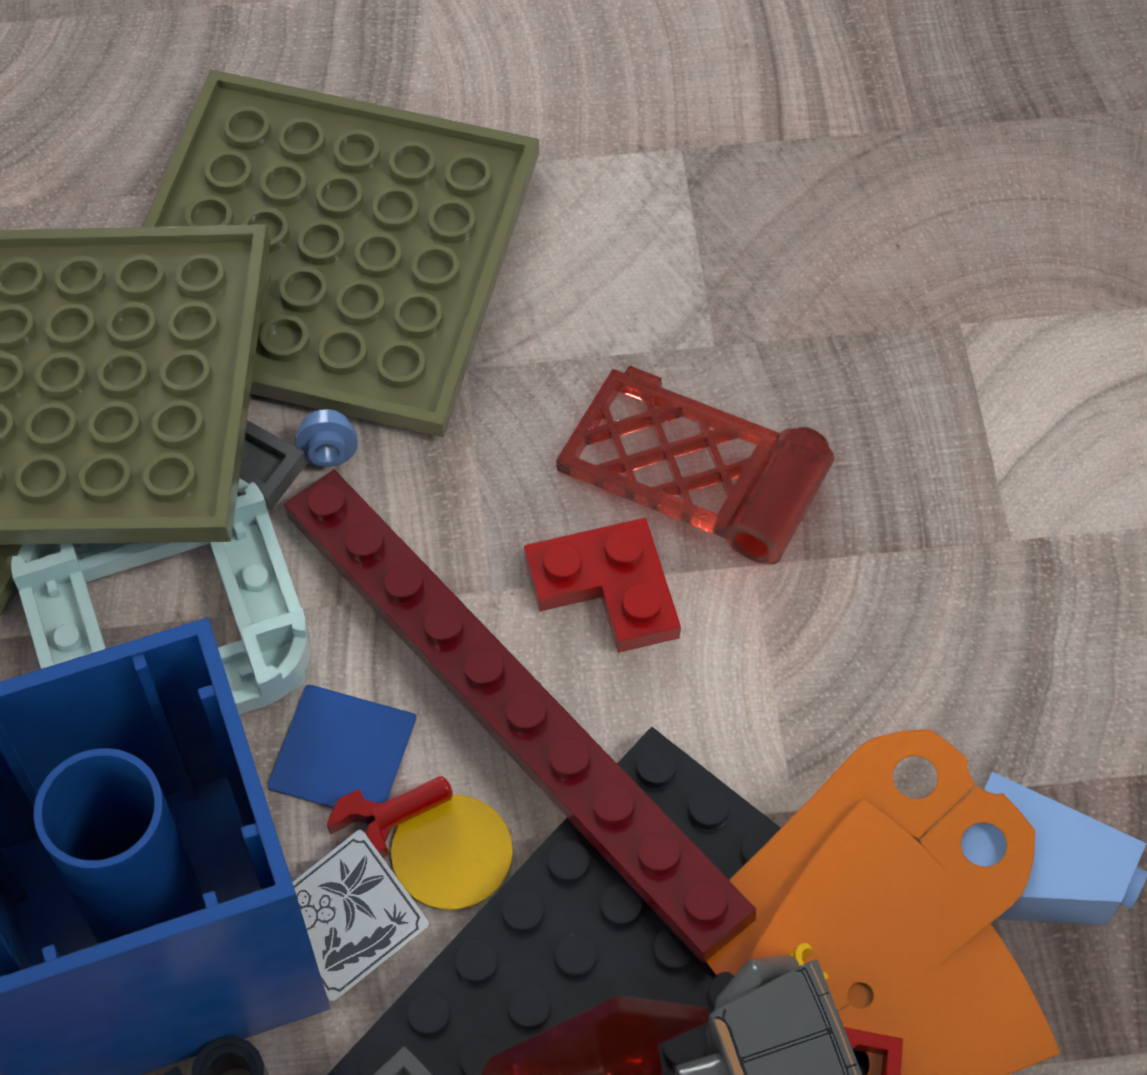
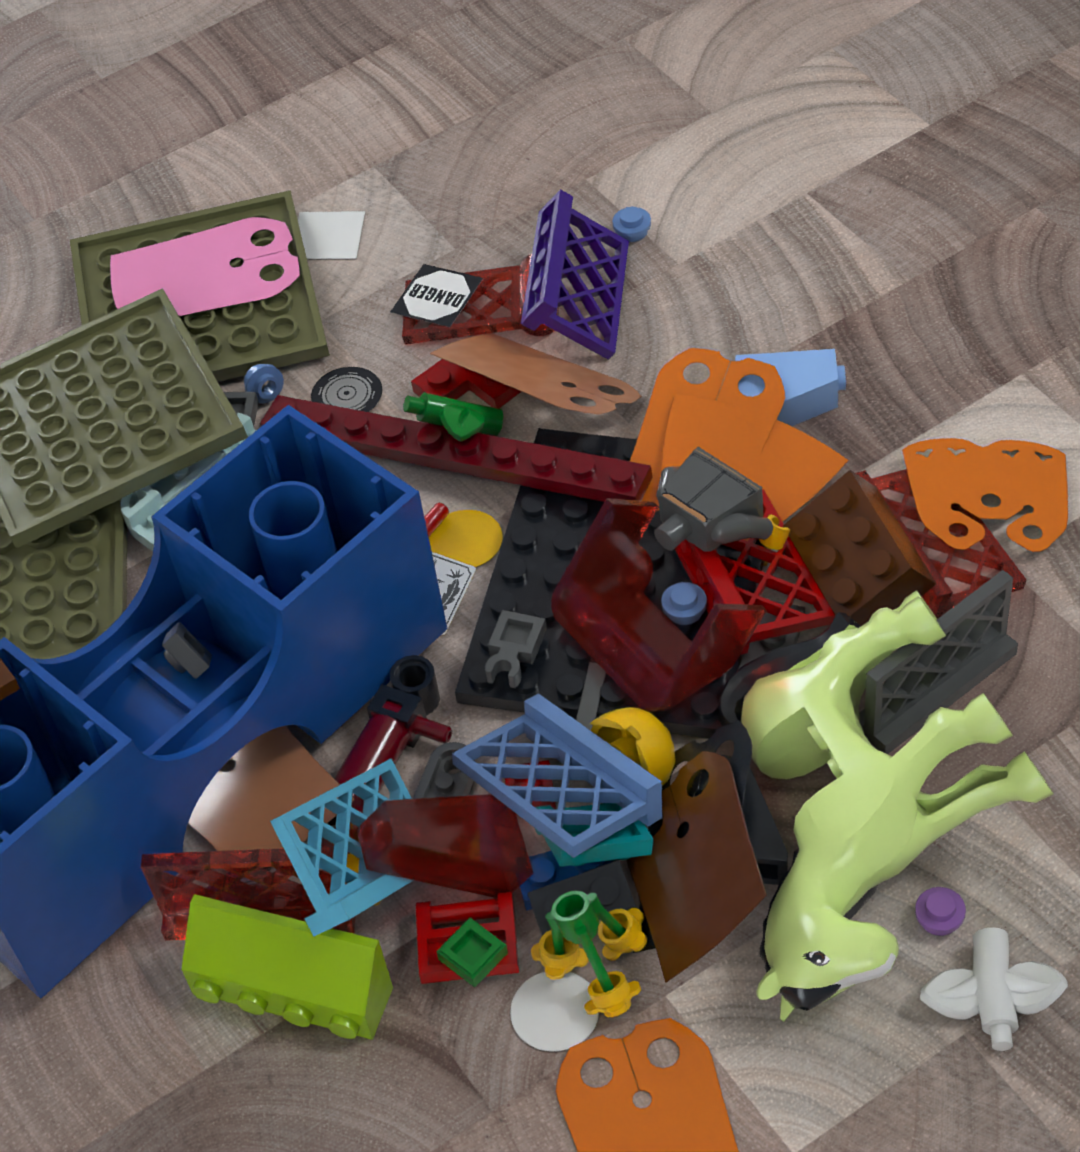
camera: 20 degrees left, 10 degrees down
(334, 205) = (198, 268): none -> bright pink piece
(435, 509) = (348, 388): none -> sticker
(540, 656) = (456, 416): none -> green plant
(561, 232) = (331, 234): none -> white sticker
(639, 419) = (436, 295): none -> sticker
(686, 629) = (536, 373): none -> nougat piece
(799, 477) = (551, 264): none -> dark purple fence
(980, 438) = (632, 223): none -> medium blue plate

